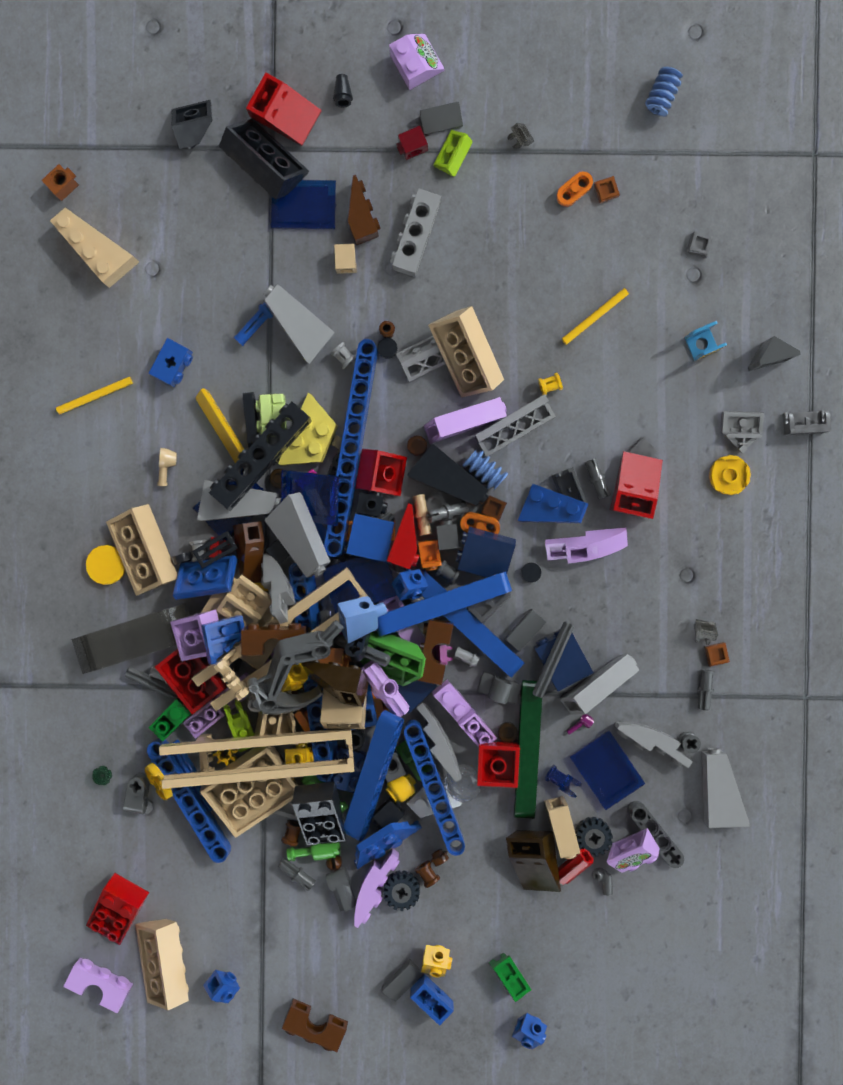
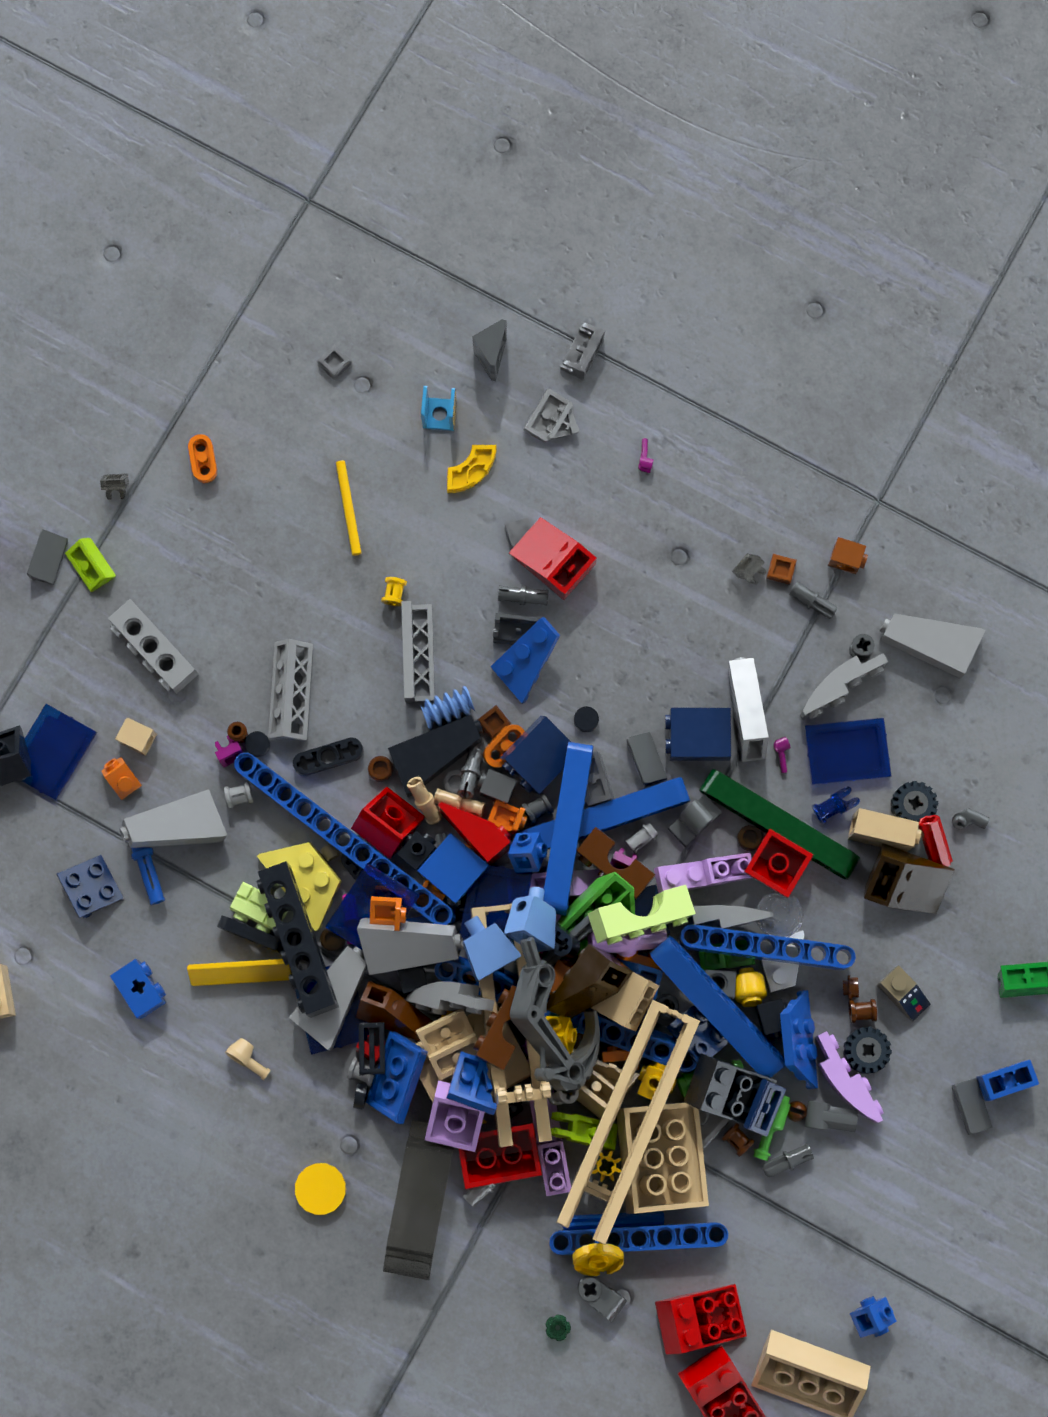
camera: 65 degrees left, 10 degrees down
(94, 395) = (124, 1097): yellow bar -> none
(142, 549) = (326, 1135): tan slope -> none
(150, 682) = (483, 1208): dark grey axle -> none
(158, 869) = (700, 1319): none -> red slope
(170, 720) = (534, 1206): green slope -> none
(223, 287) = (89, 886): none -> dark blue hinge
(310, 264) = (120, 777): none -> orange bracket
(312, 509) = (387, 911): none -> orange bracket
(321, 597) = (487, 948): none -> medium blue torso
(321, 844) = (761, 1107): none -> dark blue tile
(327, 1035) = (992, 1222): reddish brown arch -> none
(360, 220) = (106, 698): reddish brown slope -> none
(368, 331) = (228, 754): none -> magenta tile
(398, 389) = (312, 769): none -> black beam
(409, 490) = (424, 800): none -> tan pin
(412, 143) = (55, 600): dark red brick -> none
(422, 706) = (615, 921): none -> yellowish green arch
(436, 961) = (966, 1052): yellow brick -> none
(455, 895) = (904, 992): none -> slope
(465, 420) = (382, 702): lavender slope -> none
(466, 352) = (311, 660): tan slope -> none
(553, 659) = (692, 742): dark grey axle -> none
(588, 547) = (591, 643): lavender slope -> none
(606, 189) = (222, 426): dark orange tile -> none
(633, 851) = (951, 767): lavender slope -> none
(657, 832) = (945, 733): dark grey beam -> none
(663, 90) = (154, 316): medium blue piece -> none
(672, 391) = (472, 469): none -> yellow tile
(729, 475) = (595, 456): yellow tile -> none
(744, 513) = (645, 463): none -> magenta hand
(752, 697) = (848, 556): none -> dark orange brick

